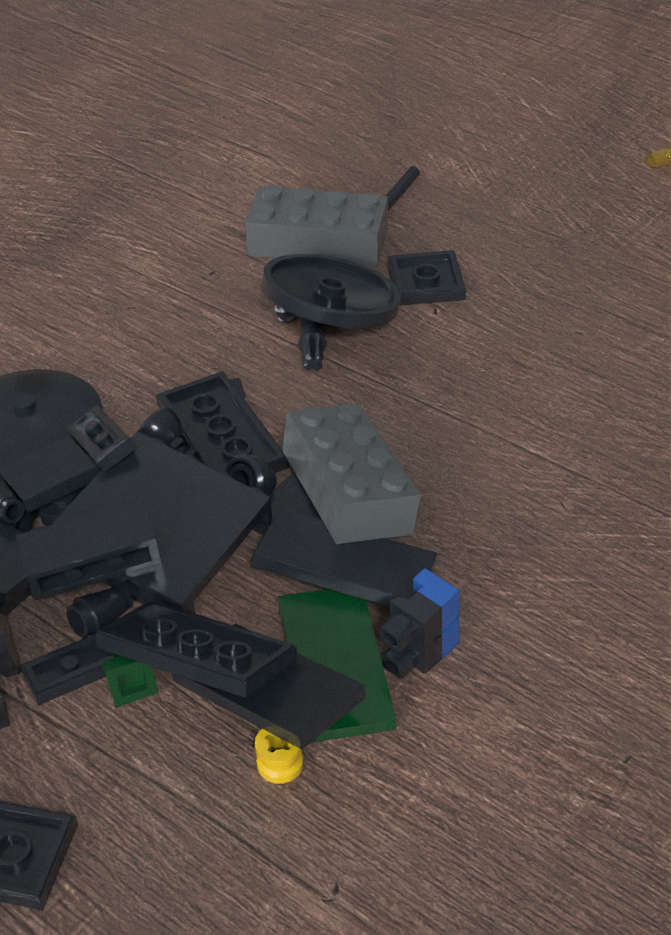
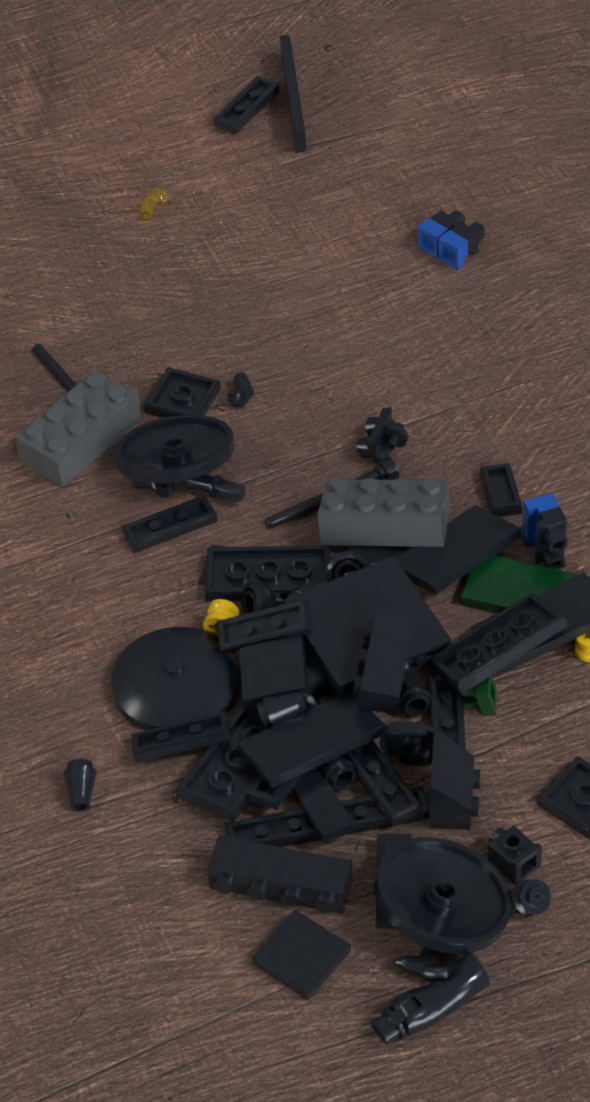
camera: 60 degrees left, 5 degrees up
(124, 414) = (217, 611): none -> yellow wheel
(244, 336) = (169, 523): none -> black tile
(431, 457) = (385, 470): none -> black piece
(464, 314) = (243, 392): none -> black arm
(480, 433) = (383, 436): none -> black hips
(486, 569) = (501, 490): none -> black tile

